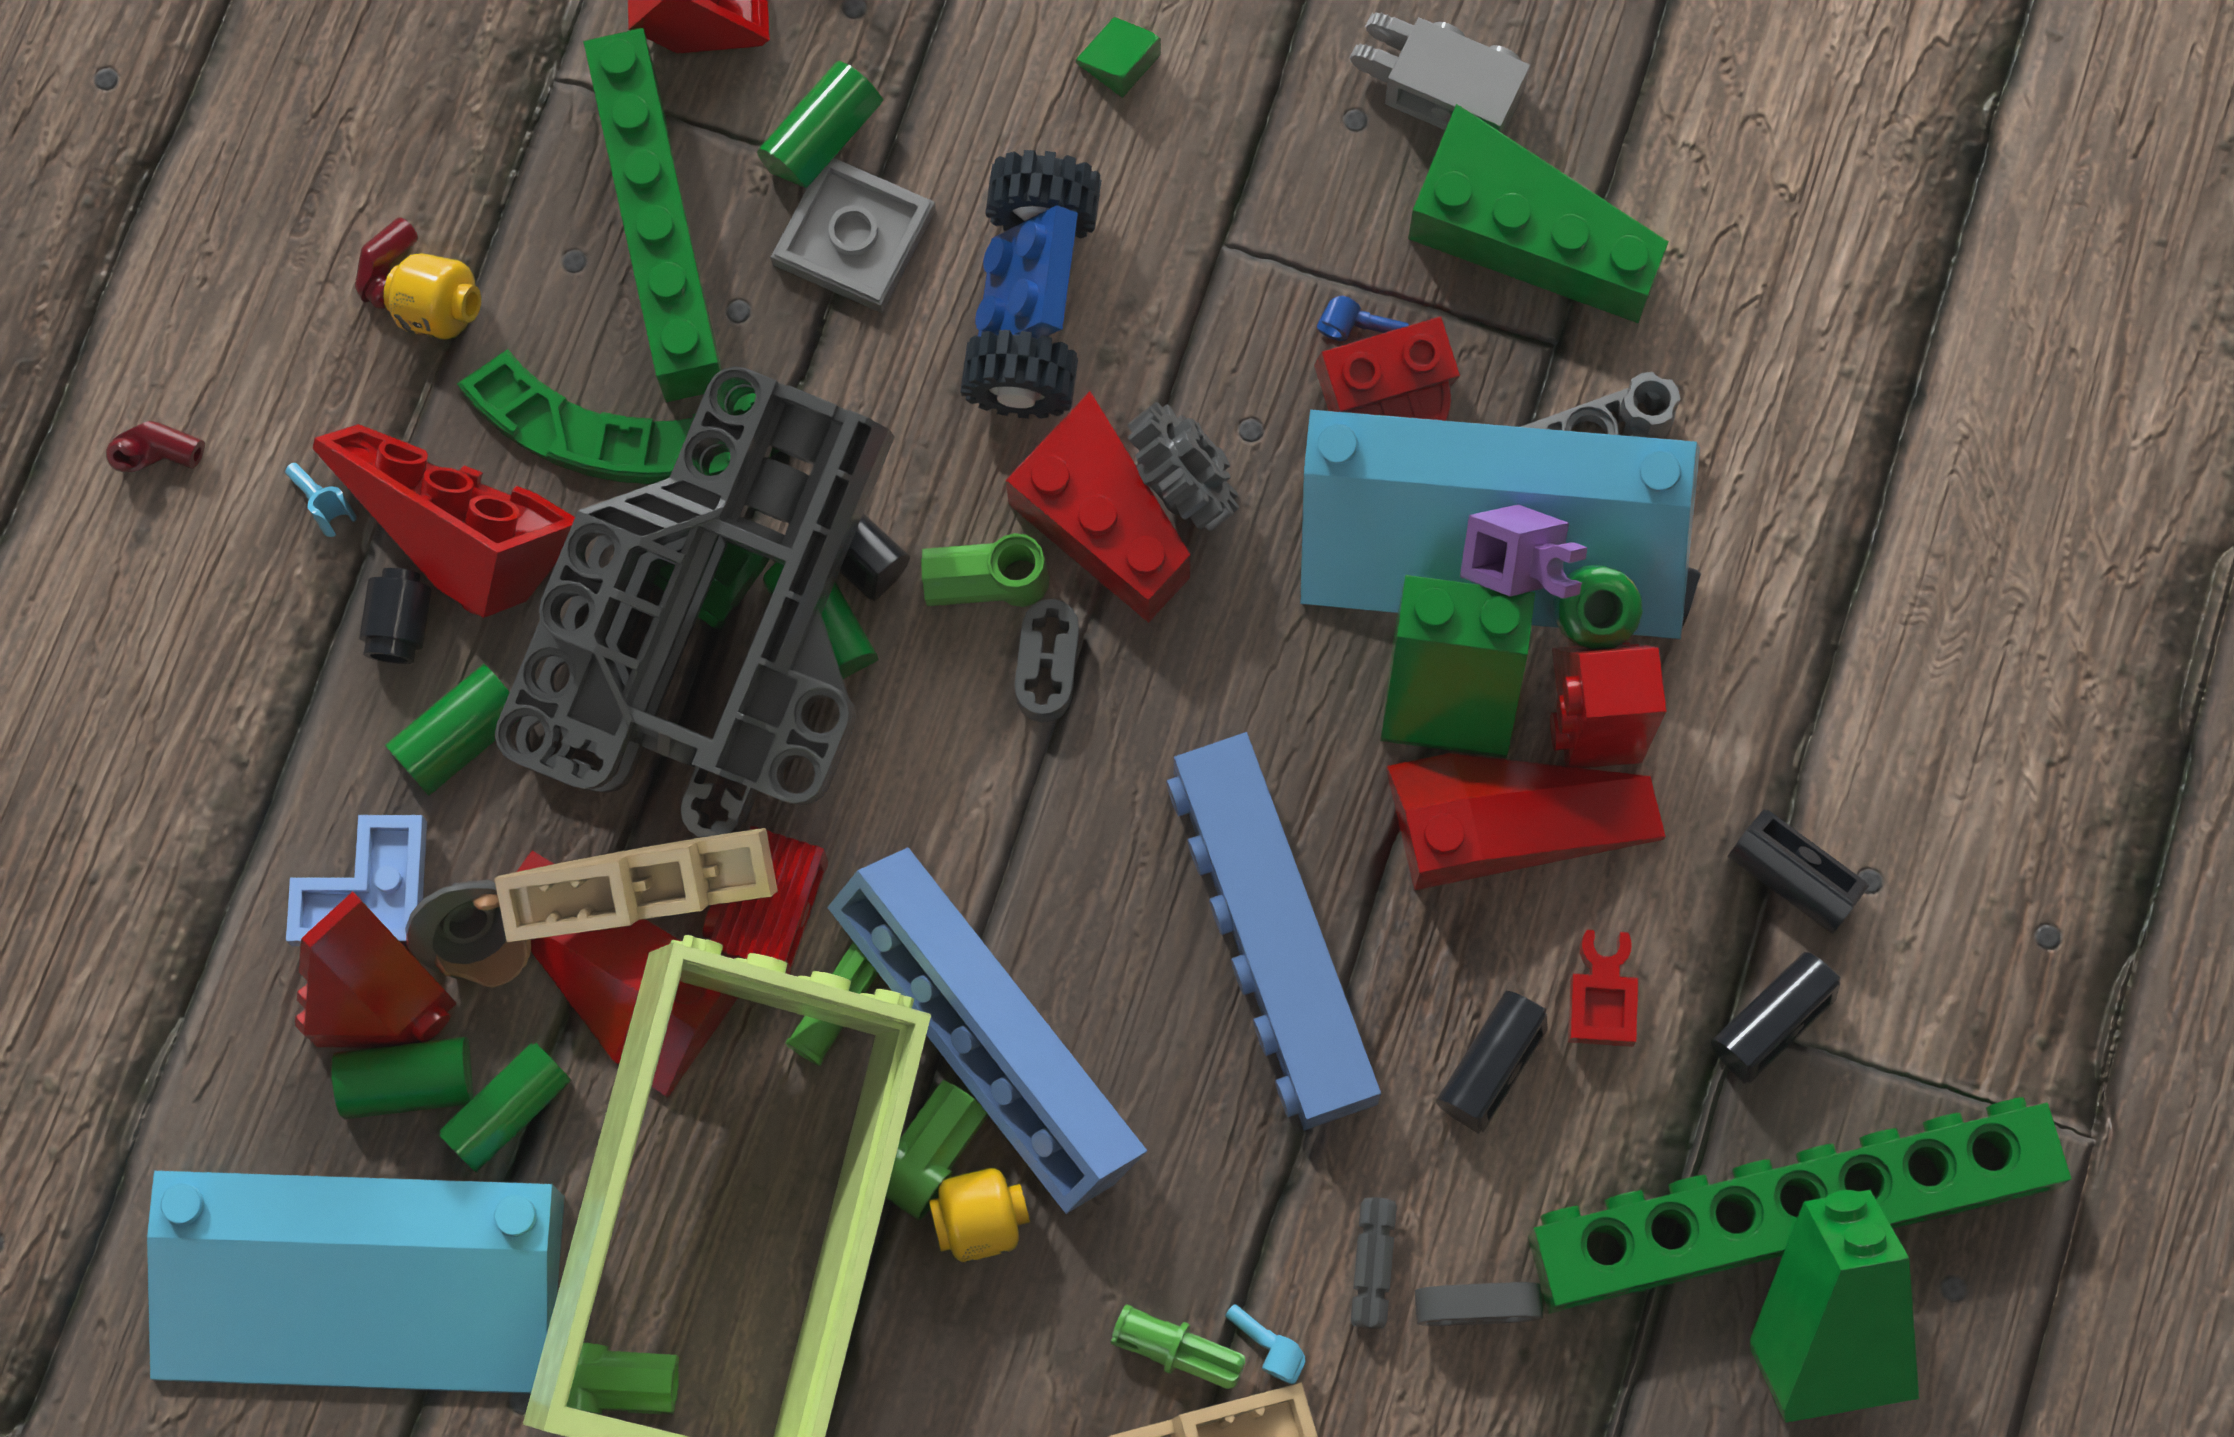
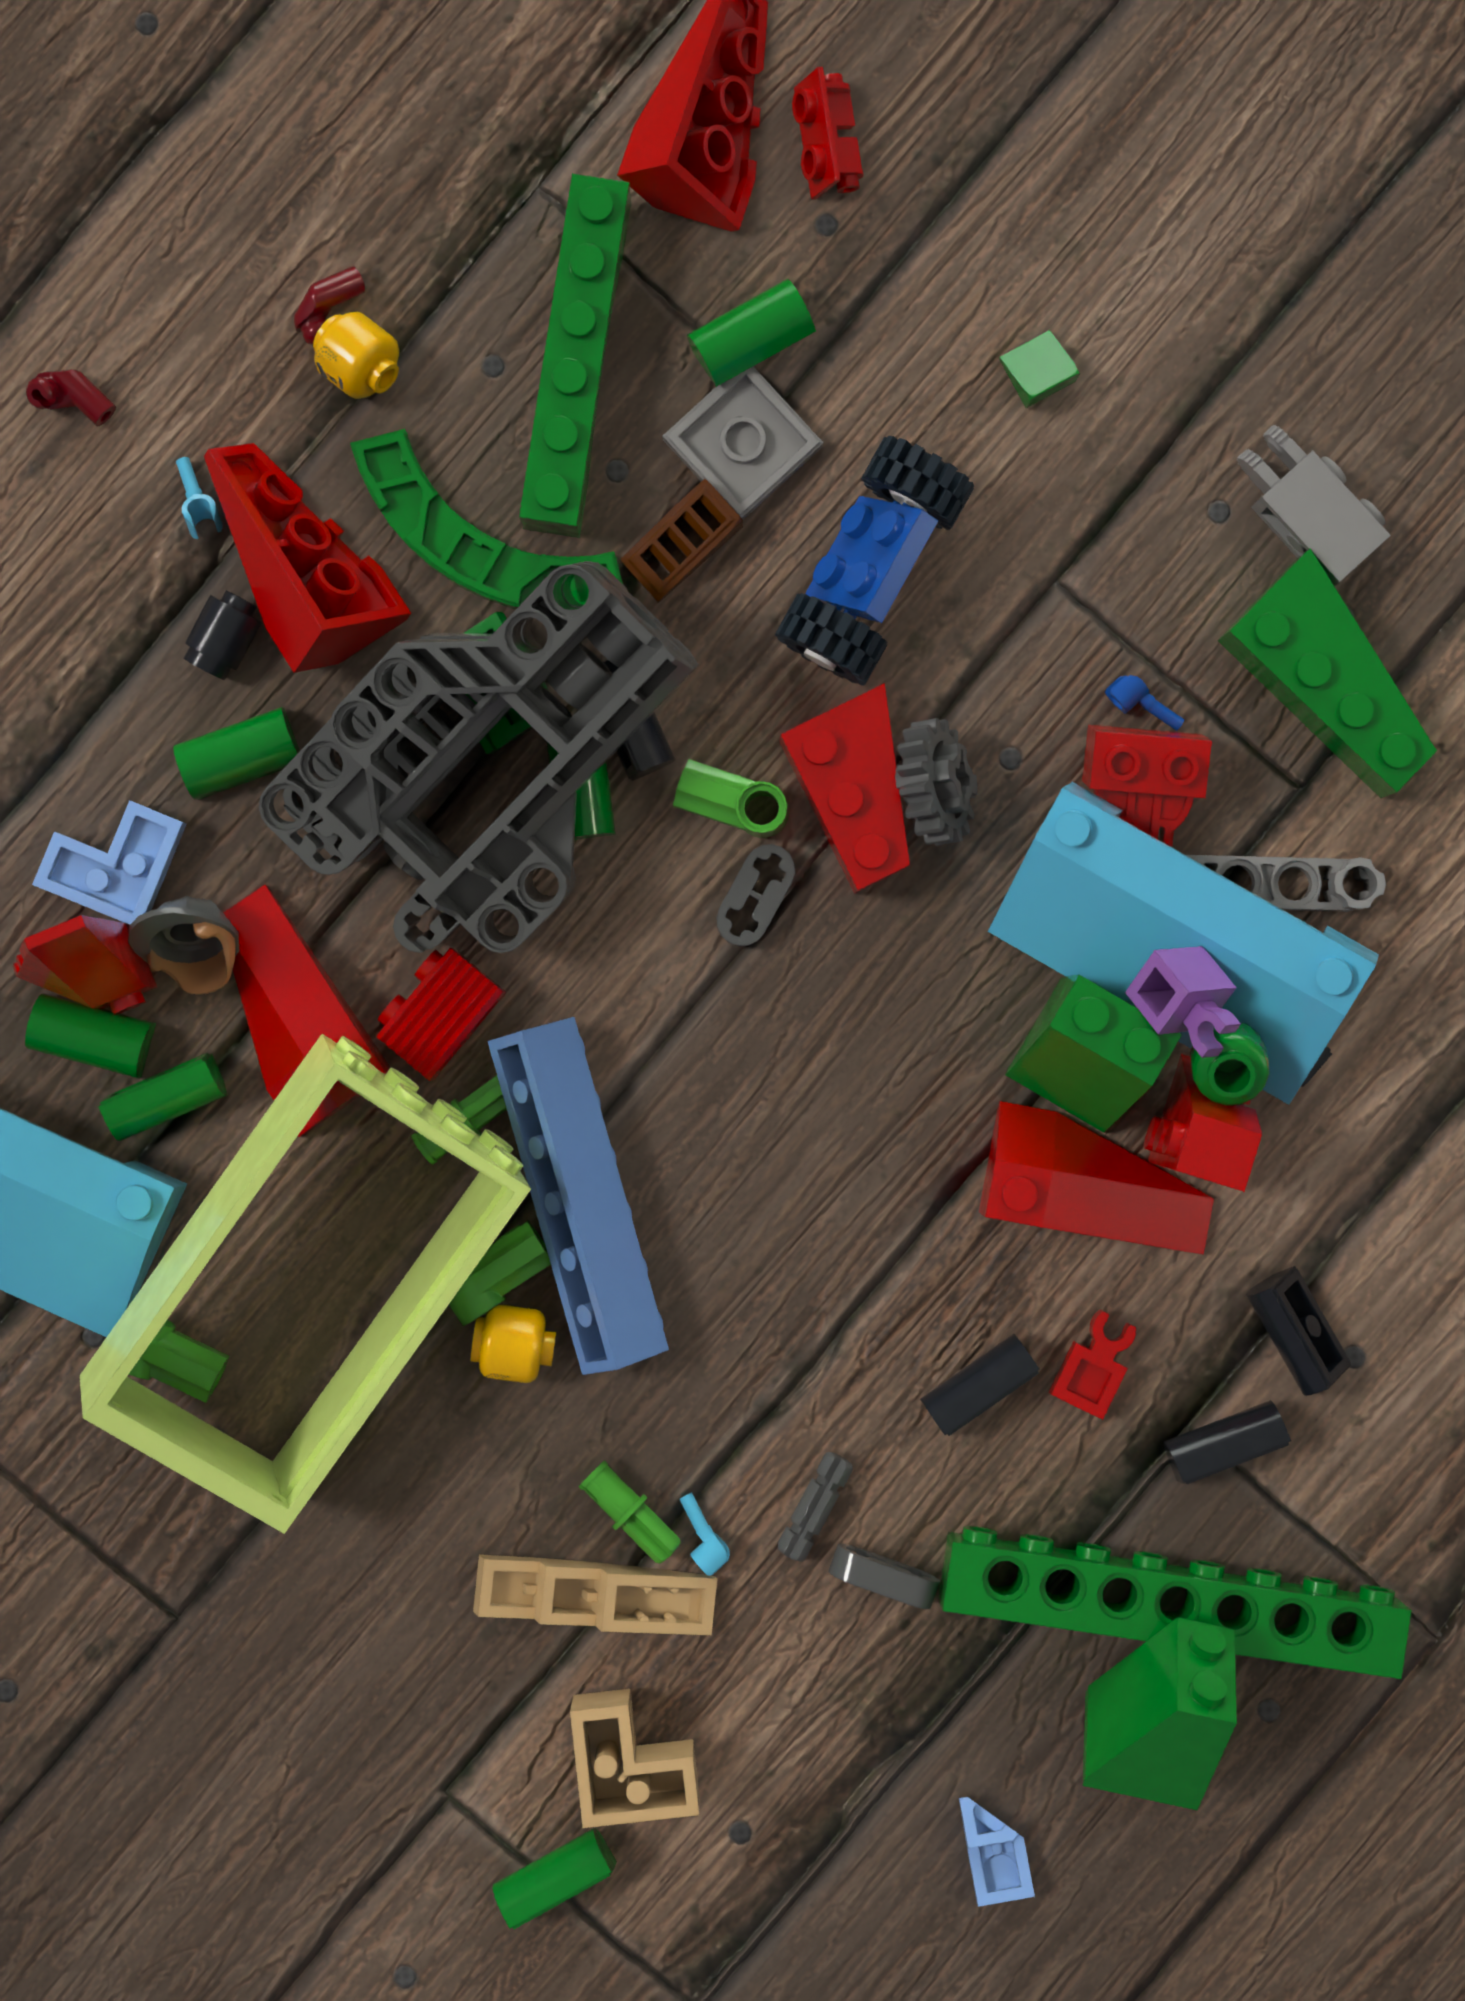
camera: 20 degrees right, 15 degrees up
(635, 885) = (333, 965): tan slope -> none
(850, 298) = (703, 494): none -> reddish brown slope
(1274, 931) = (847, 1207): medium blue brick -> none

